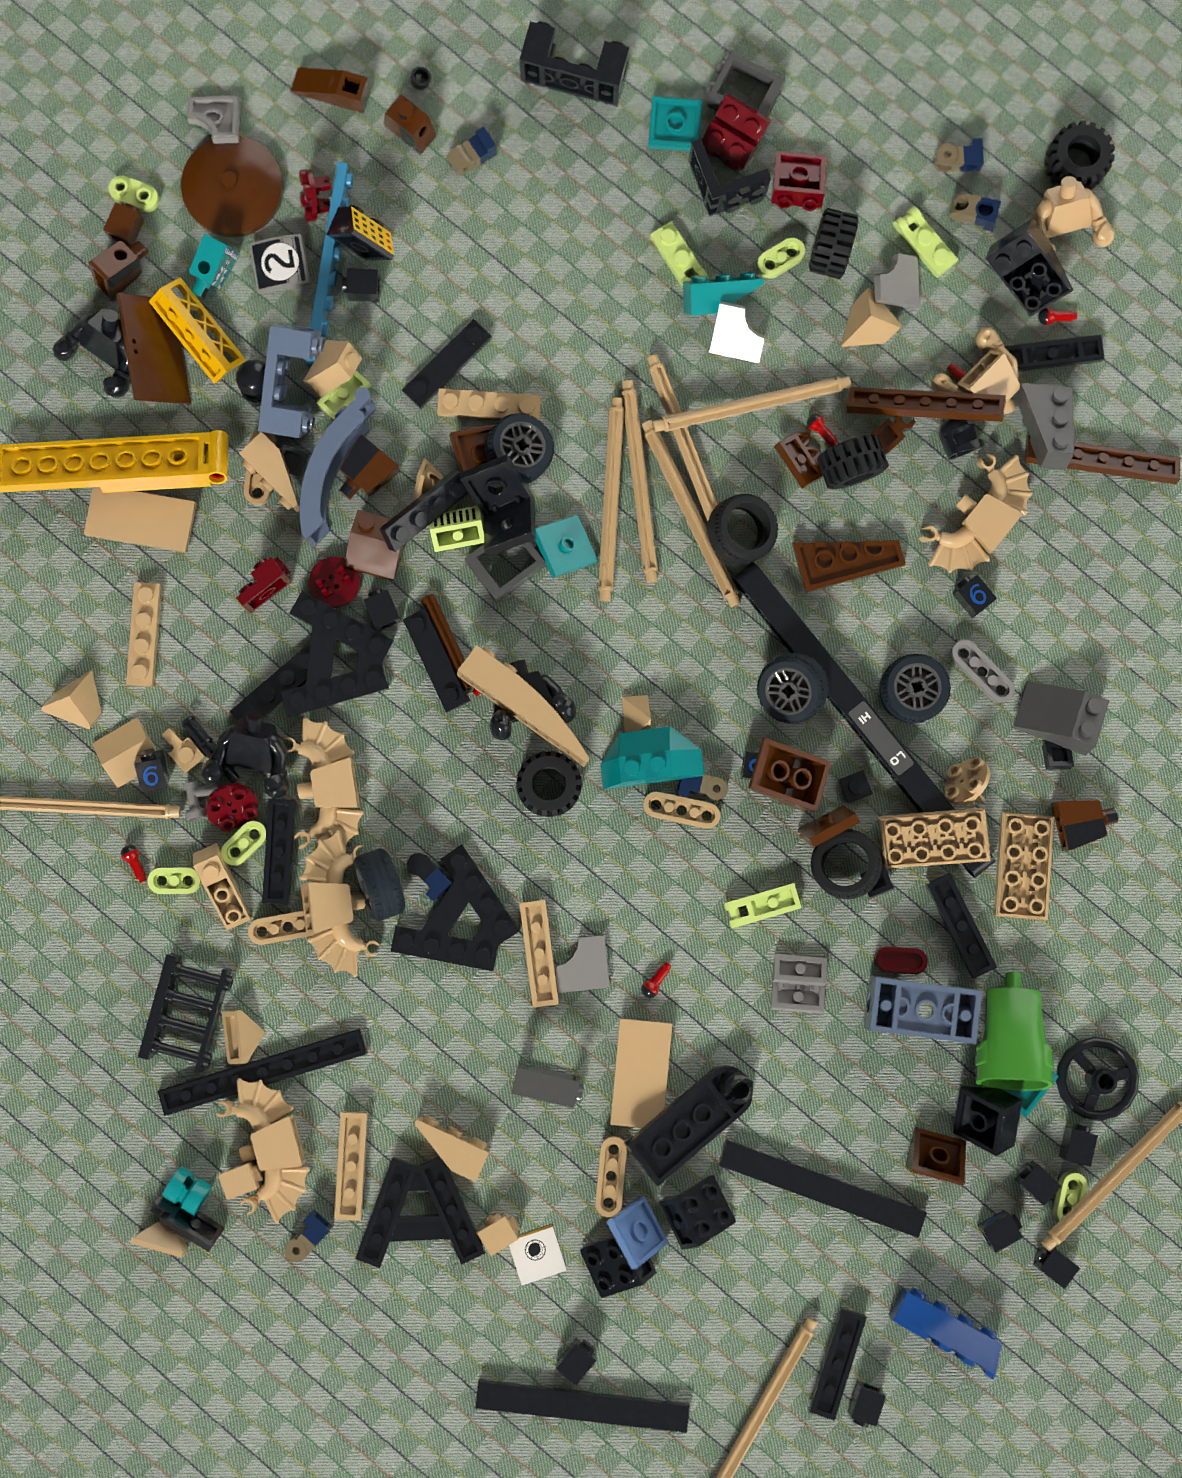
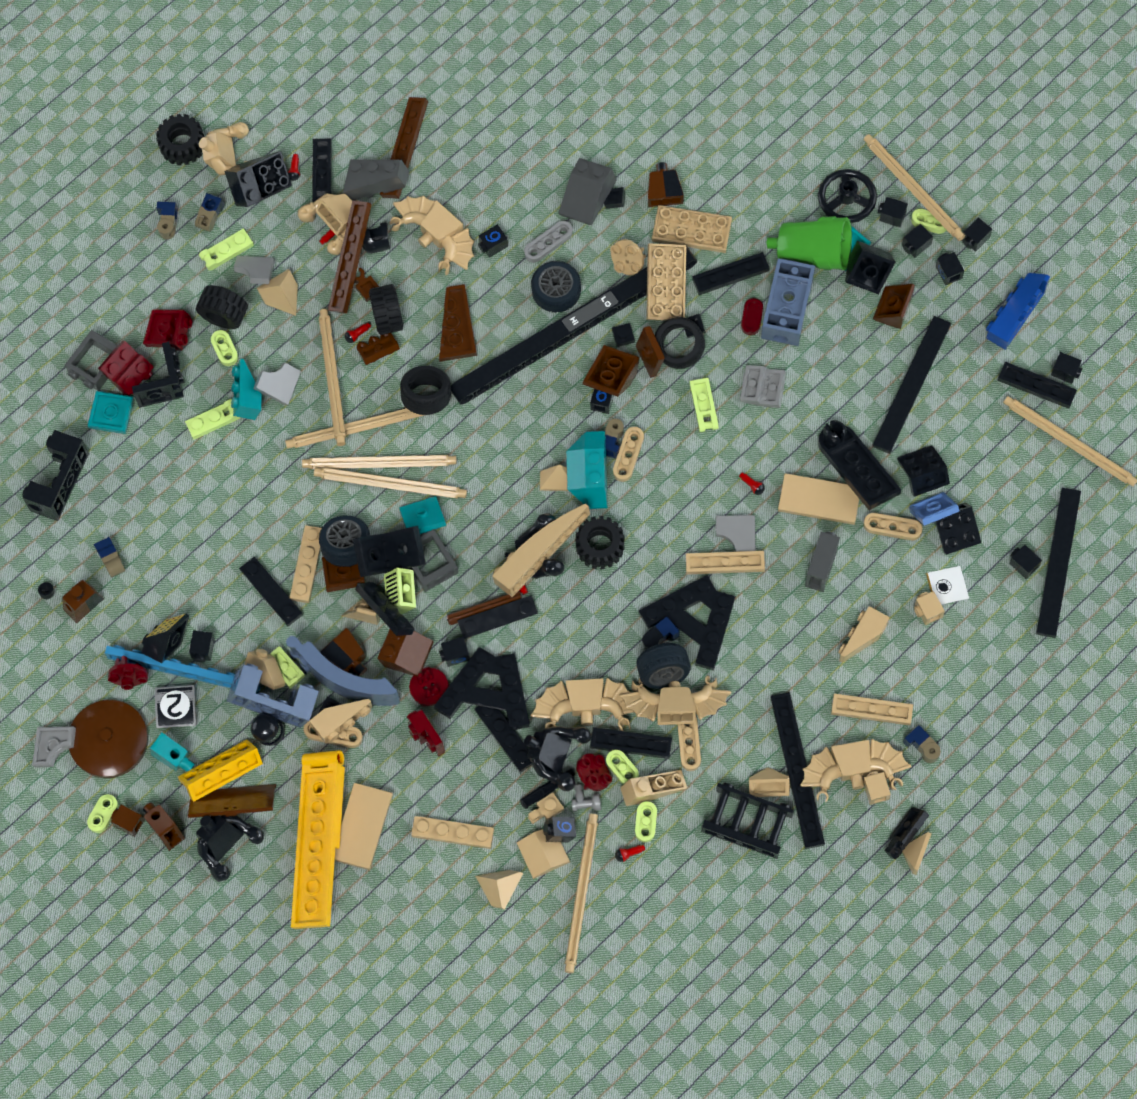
camera: 75 degrees left, 15 degrees down
(187, 1190) = (882, 827): teal wheel -> none
(332, 87) = (43, 655): reddish brown slope -> none
(450, 1223) = (919, 685): black plate -> none
(691, 514) = (408, 428): tan piece -> none
(802, 698) = (542, 377): wheel -> none

